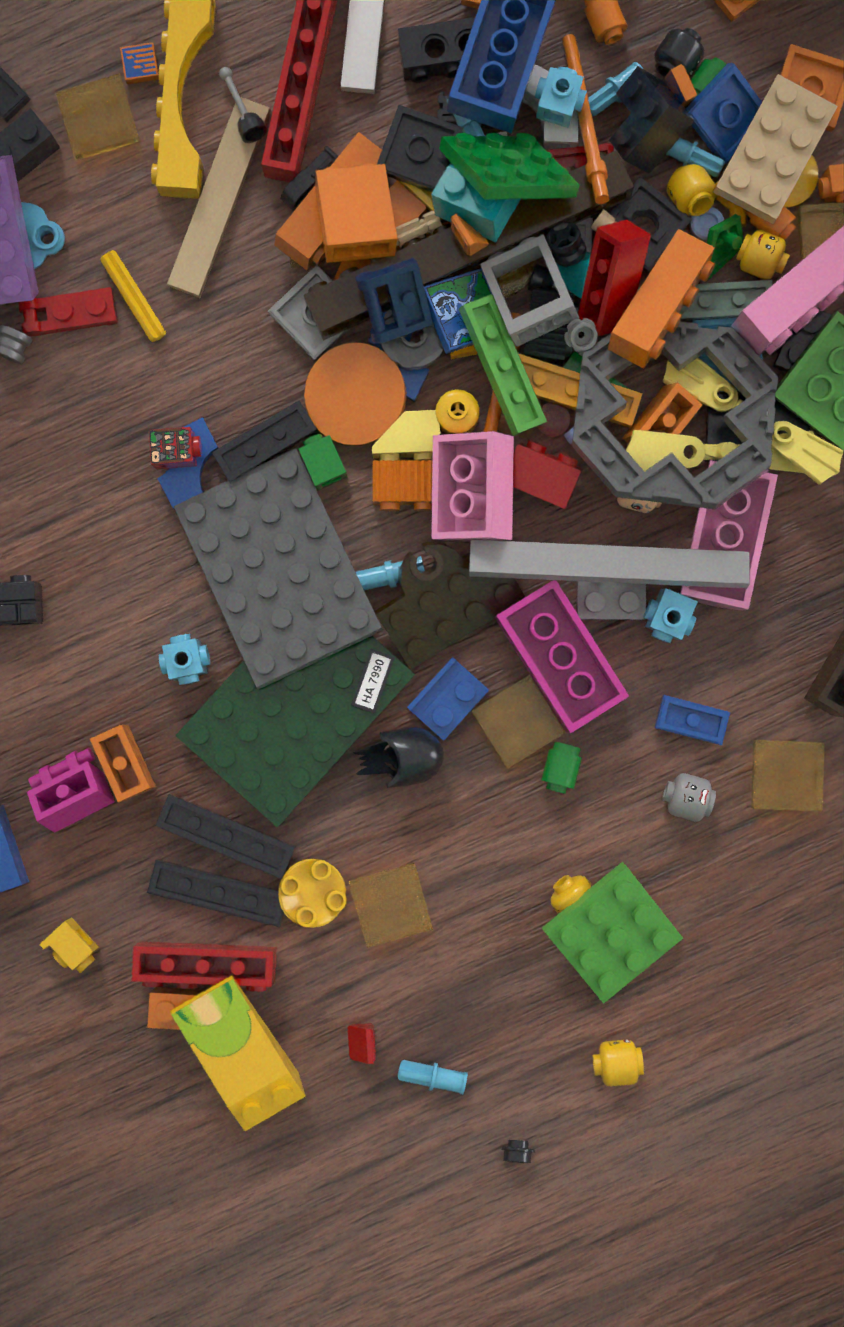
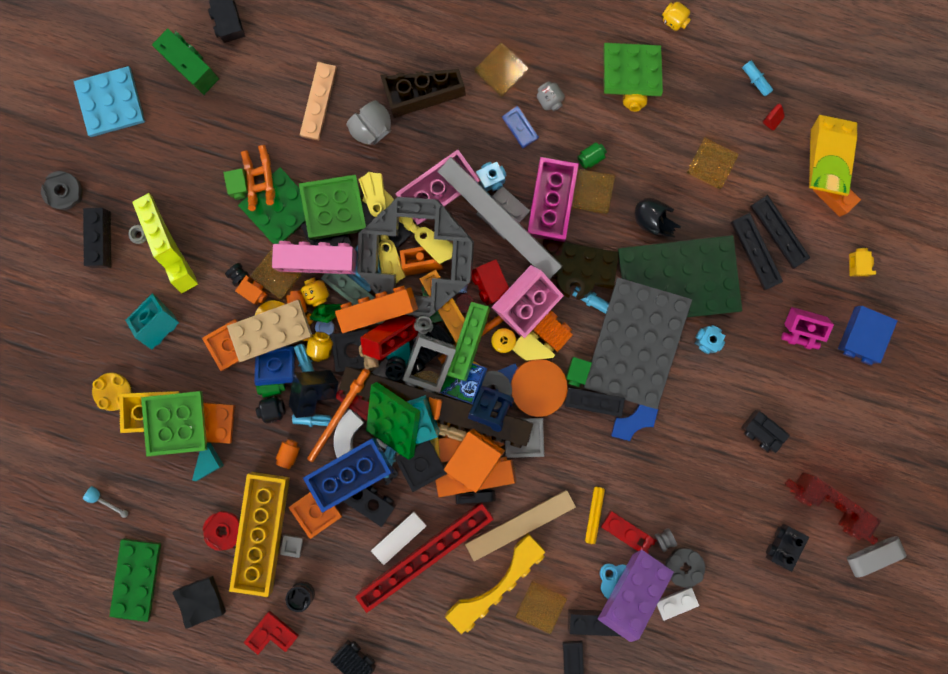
camera: 140 degrees left, 0 degrees up
(122, 762) = (774, 318): orange brick -> none
(139, 63) = (502, 614): tile -> none
(174, 448) = (636, 432): brick -> none
(203, 964) = (813, 206): red brick -> none
(250, 124) = (481, 543): black hinge -> none
(312, 893) = (741, 196): yellow dish -> none
(372, 681) = (639, 260): sticker -> none
(448, 698) = (613, 226): blue plate -> none
(517, 1151) = (749, 17): black plate -> none
(560, 96) = (346, 428): medium azure brick -> none
(680, 85) = (285, 391): orange tile -> none

